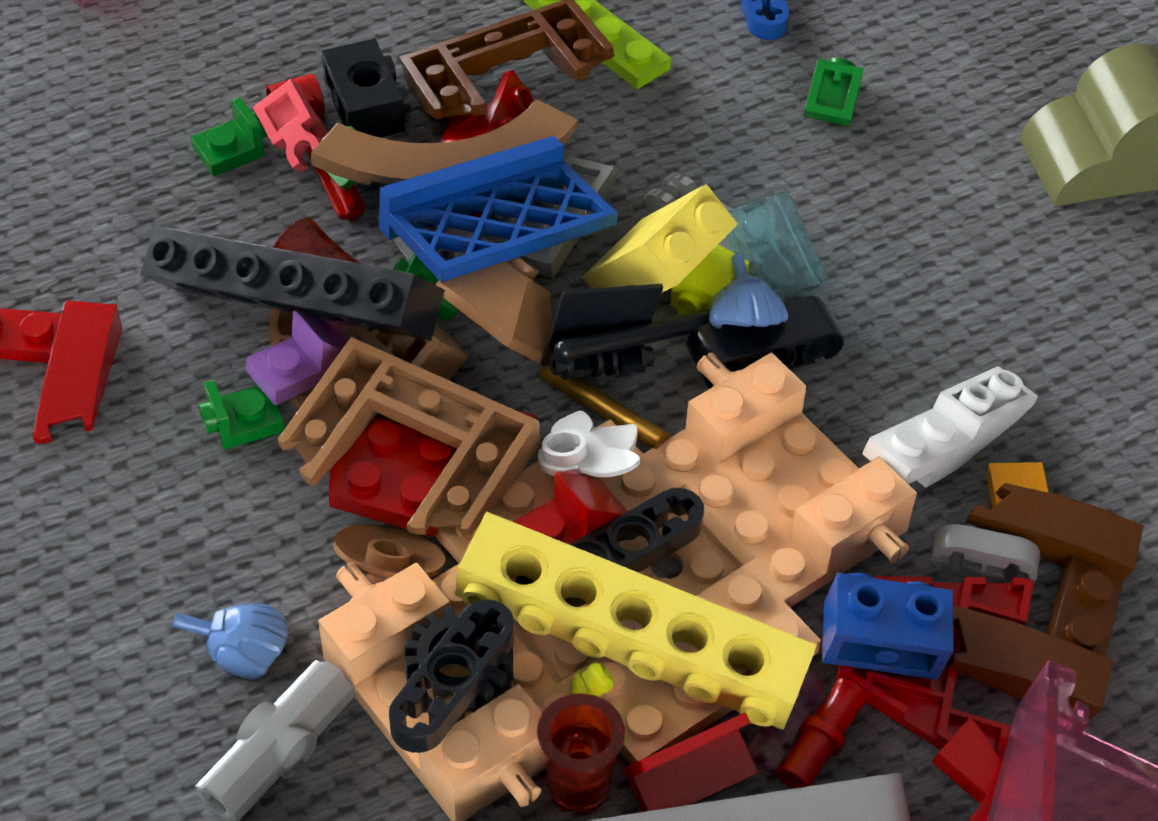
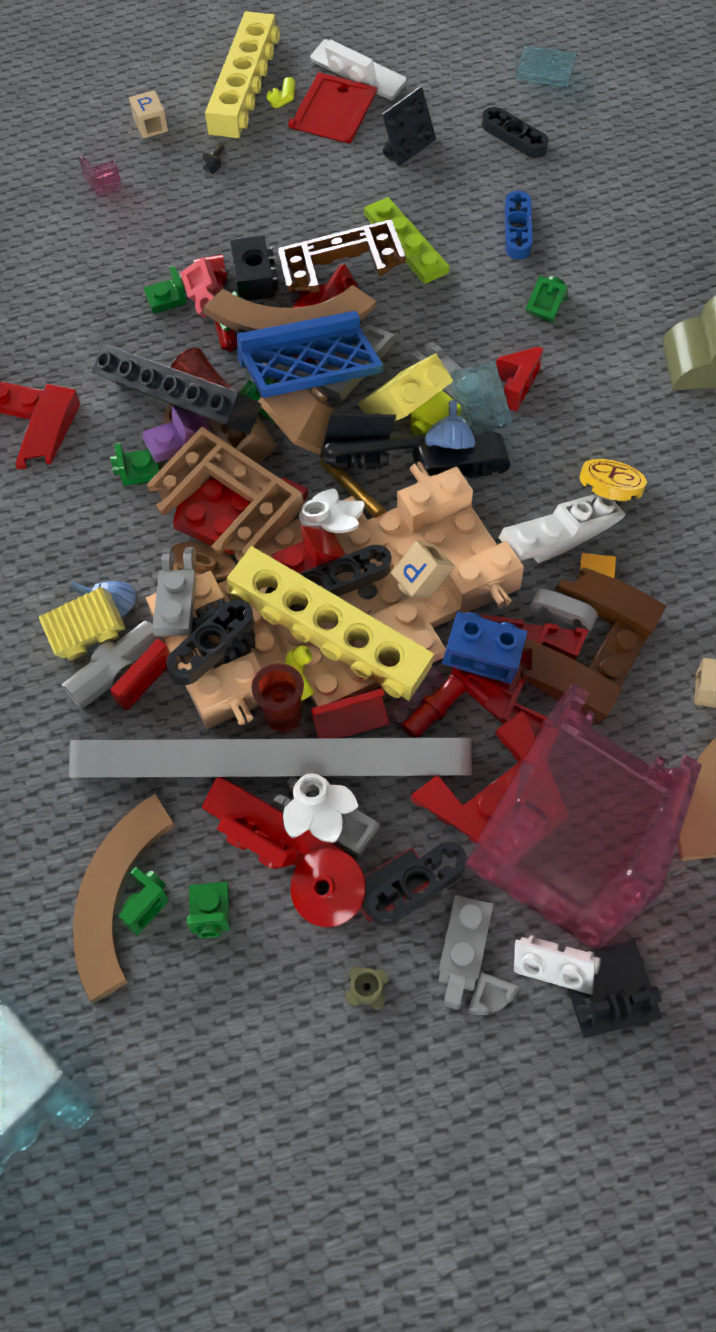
camera: 15 degrees right, 10 degrees up
(212, 680) = (82, 624): none -> light yellow brick
(329, 751) = (141, 675): none -> red tile
(373, 610) = (175, 595): none -> light grey hinge
(760, 518) = (422, 570): none -> tan brick
(821, 204) = (519, 373): none -> red slope
(1008, 346) = (613, 479): none -> yellow tile

